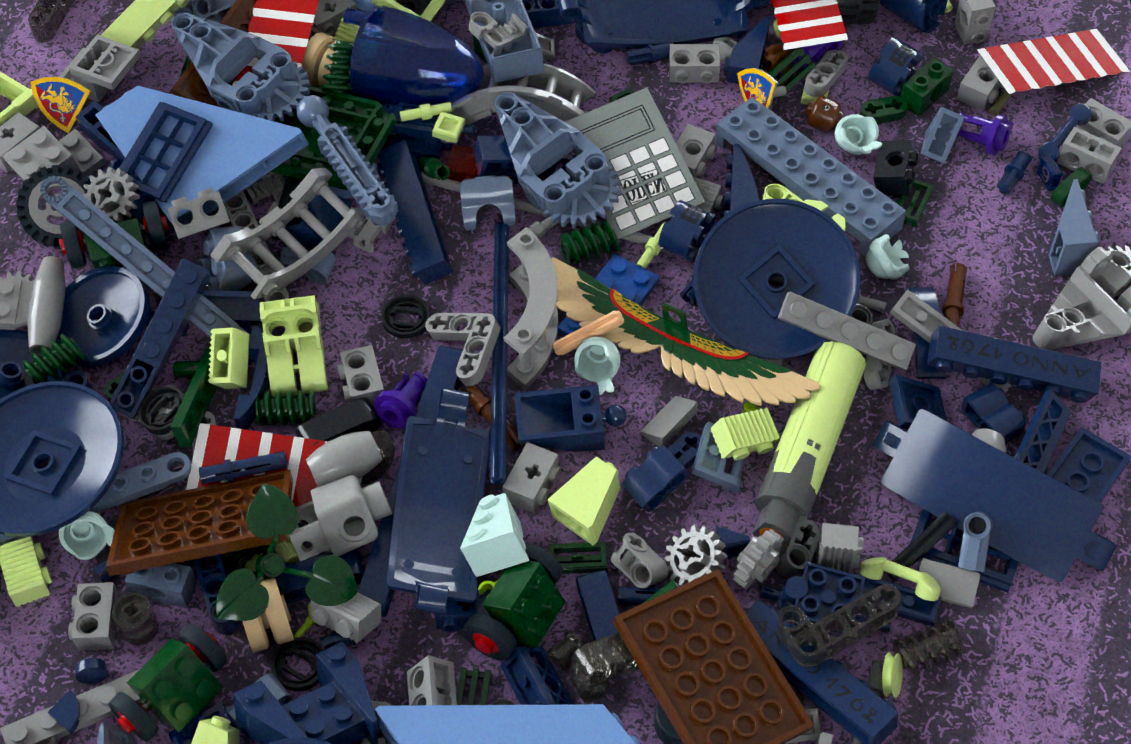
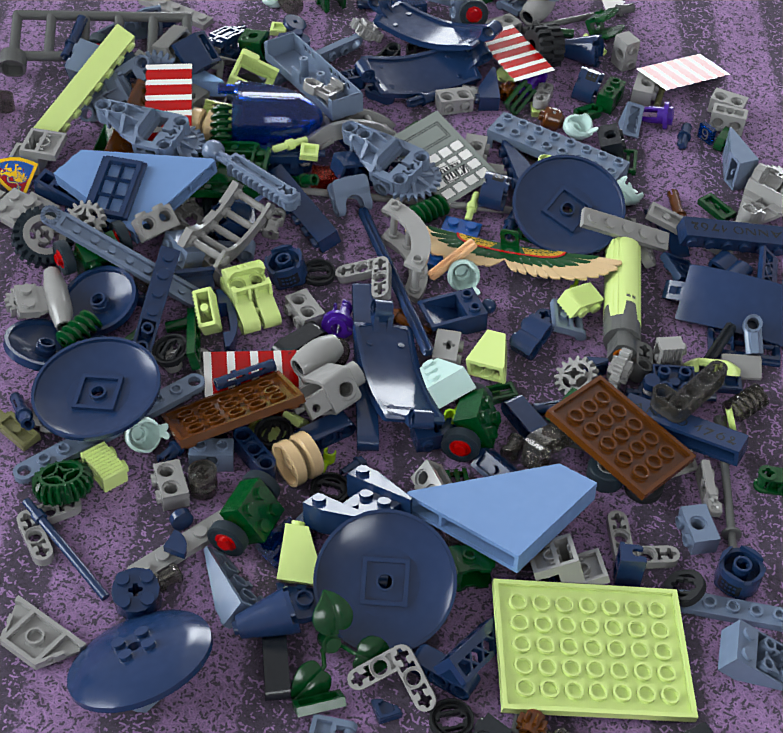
camera: 20 degrees left, 10 degrees down
(244, 597) = (287, 438): dark green plant -> none
(285, 408) = (258, 335): dark green piece -> none
(349, 619) = (355, 446): light grey brick -> none
(358, 305) = (286, 267): none -> dark blue brick
(639, 562) = (536, 385): light grey piece -> none
(670, 420) = (523, 305): light grey slope -> none
(760, 86) = (504, 103): shield -> none
(1018, 323) = (714, 207): none -> dark green tile
(1080, 115) = (715, 95): dark blue bar -> none

